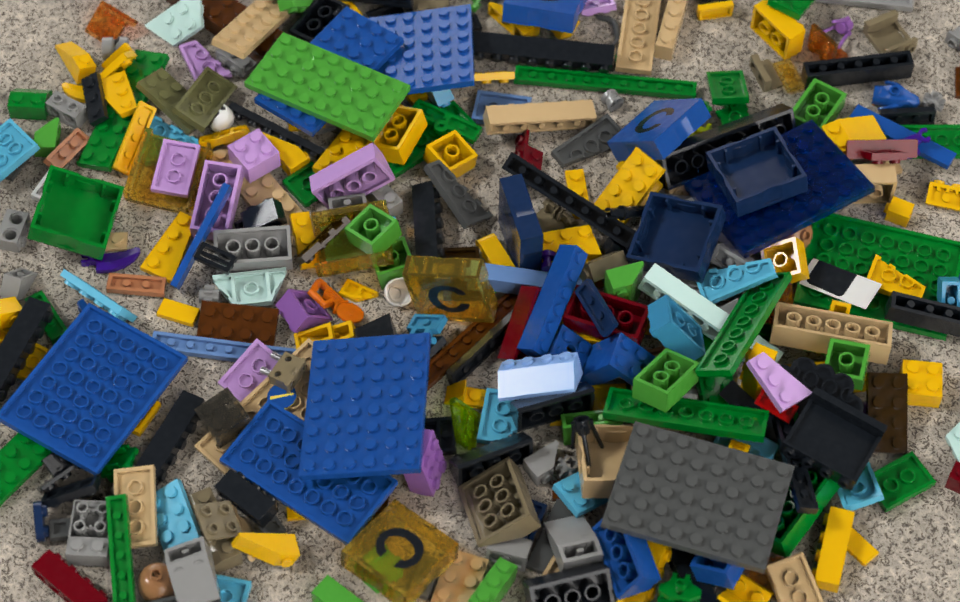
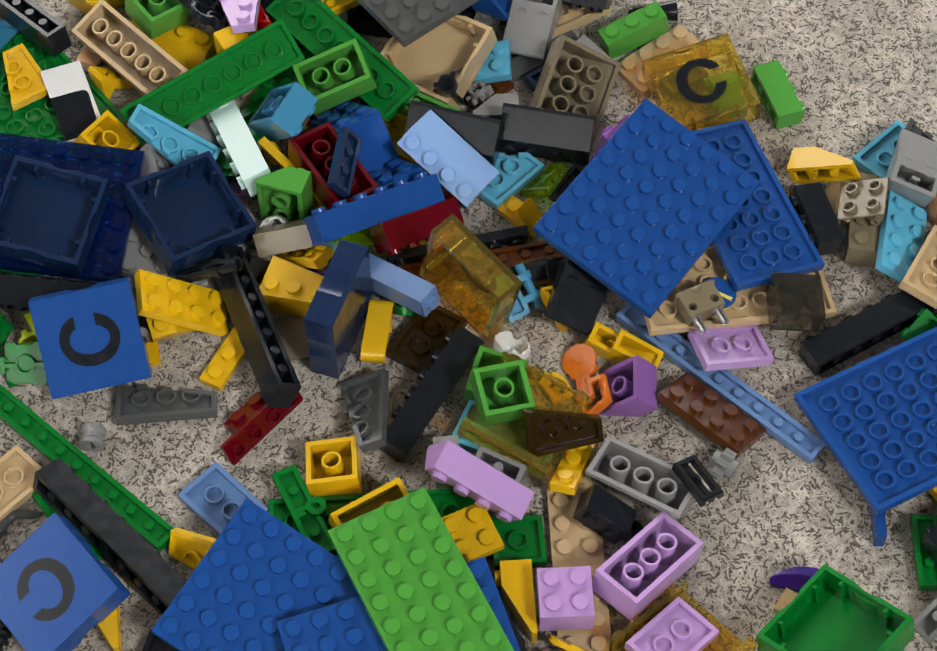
camera: 145 degrees left, 0 degrees up
(97, 297) = (857, 528): medium azure plate -> none
(136, 285) = (799, 532): nougat plate -> none
(170, 249) = (735, 556): yellow wing -> none
(178, 312) = (768, 474): yellow tile -> none
(201, 235) = (696, 516): blue tile -> none
(251, 287) = (669, 443): light aqua wing -> none
(539, 117) = (195, 453): tan brick -> none

